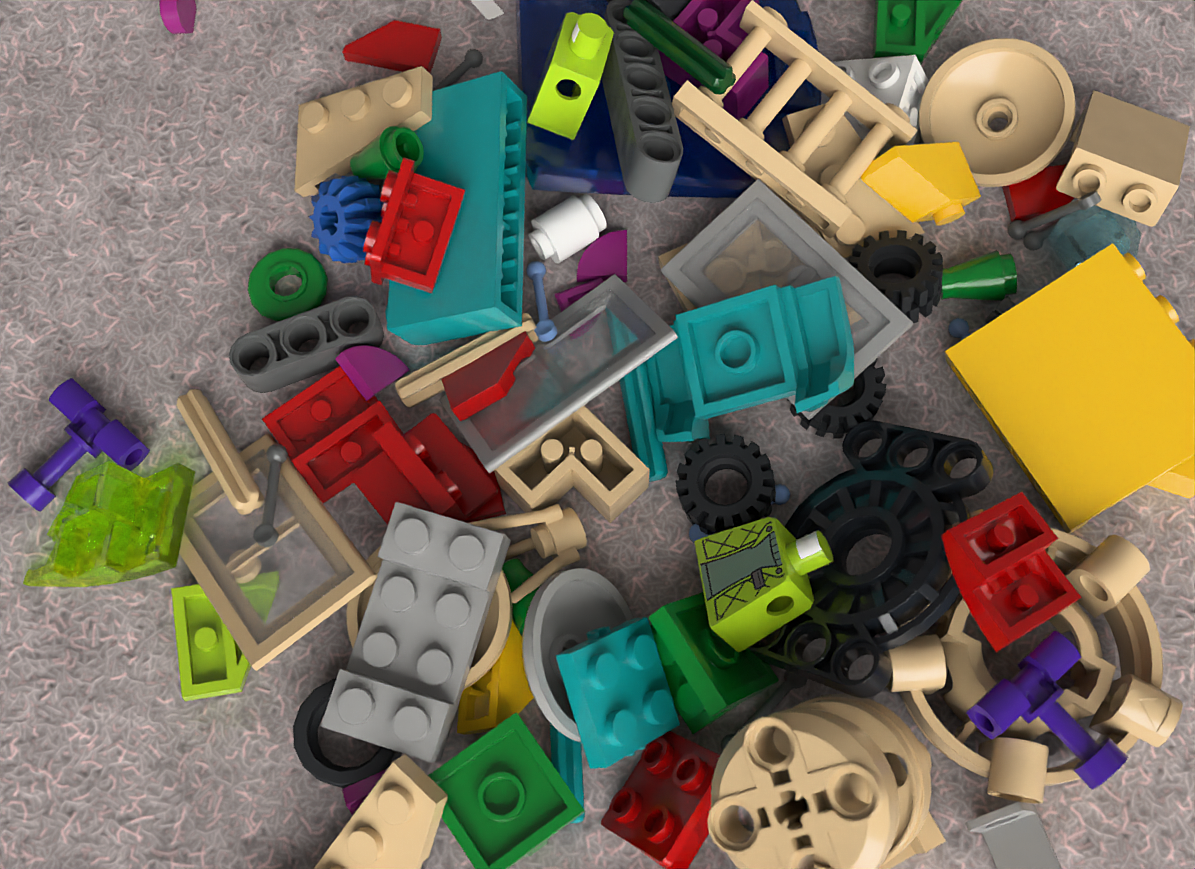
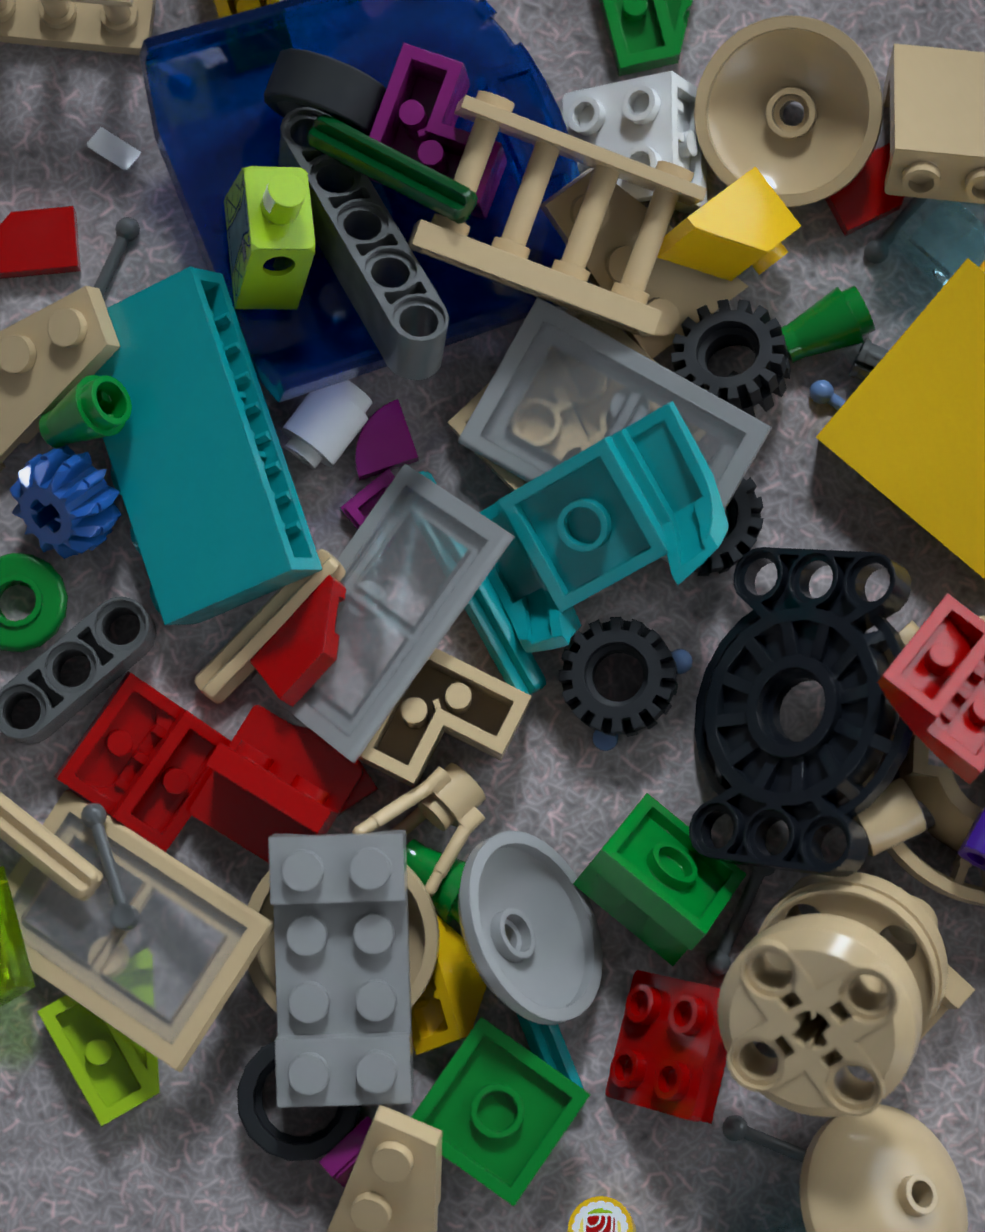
camera: 25 degrees left, 10 degrees up
(371, 368) = (162, 676): magenta tile -> none
(413, 230) = (161, 504): red bracket -> none
(545, 327) = (349, 560): medium blue hinge -> none
(617, 691) = (581, 954): teal plate -> none
(757, 578) = (690, 777): lime torso -> none
(1018, 229) = (855, 242): dark grey hinge -> none

